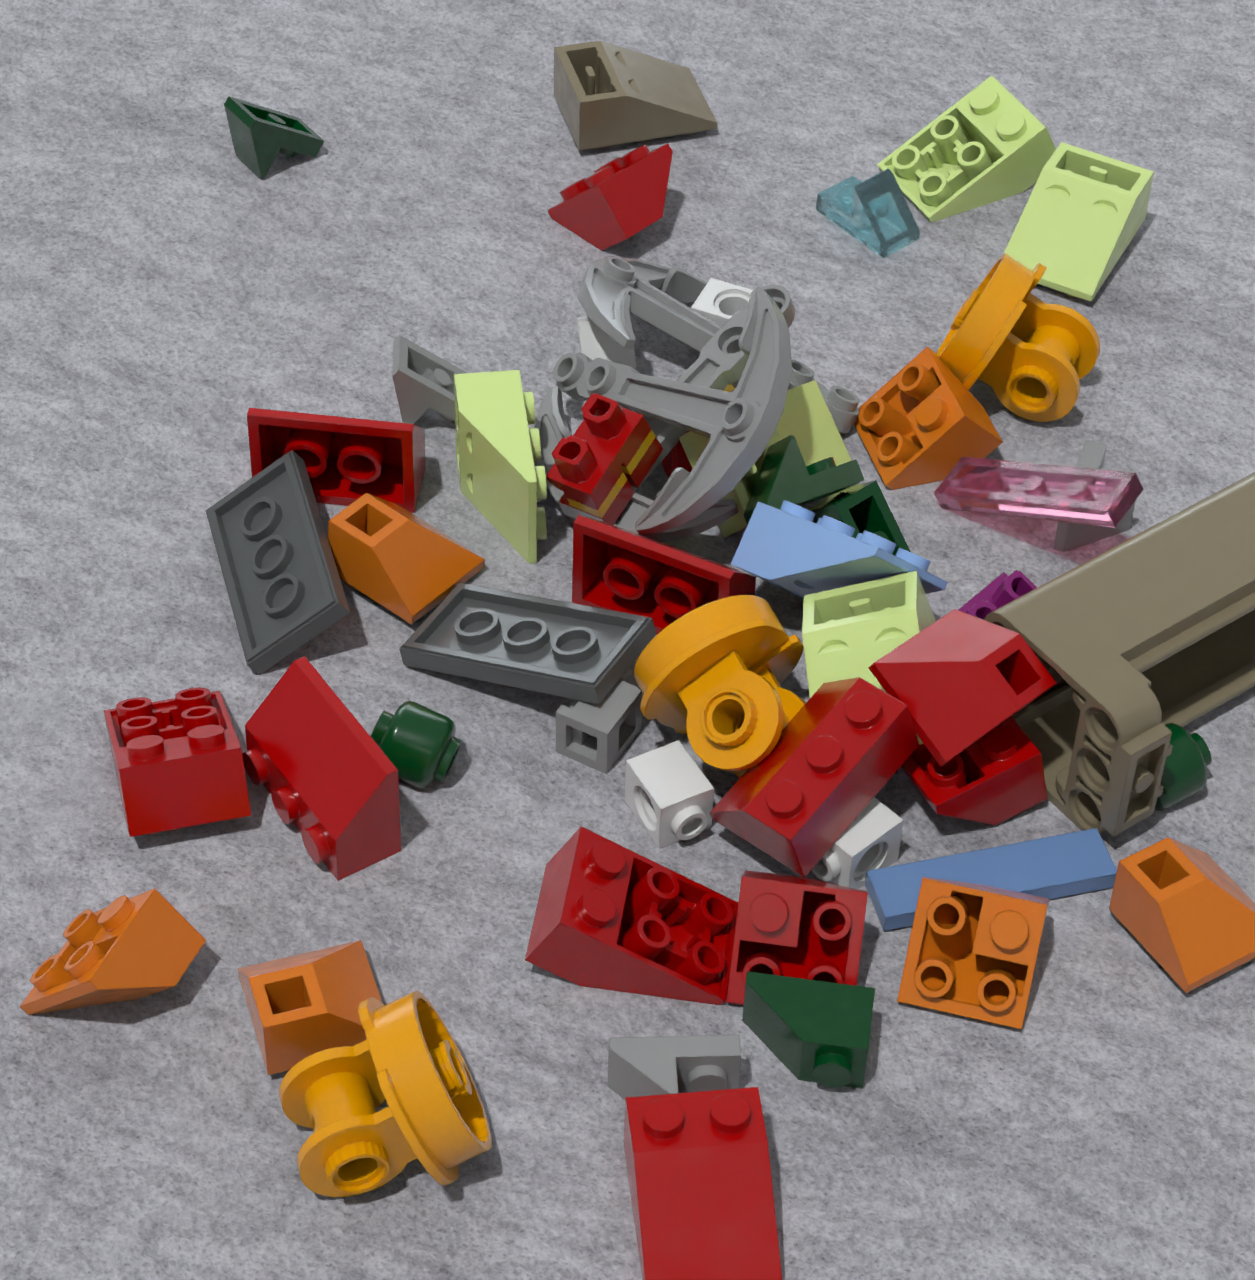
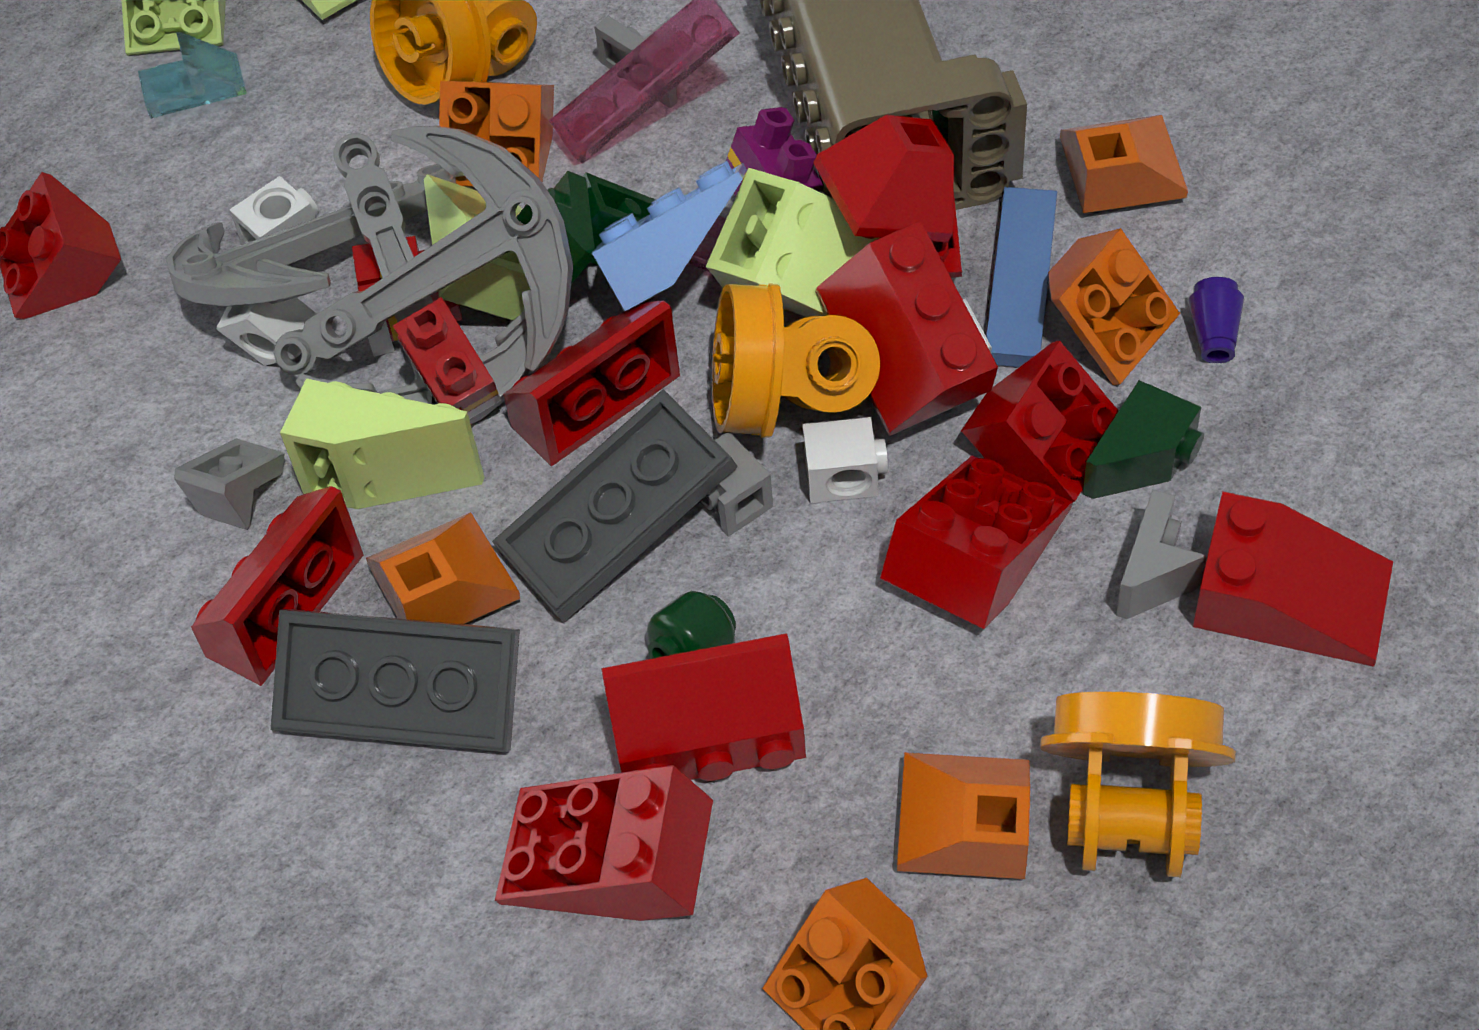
camera: 60 degrees left, 10 degrees up
(1021, 1054) = (1216, 316): none -> dark purple cone

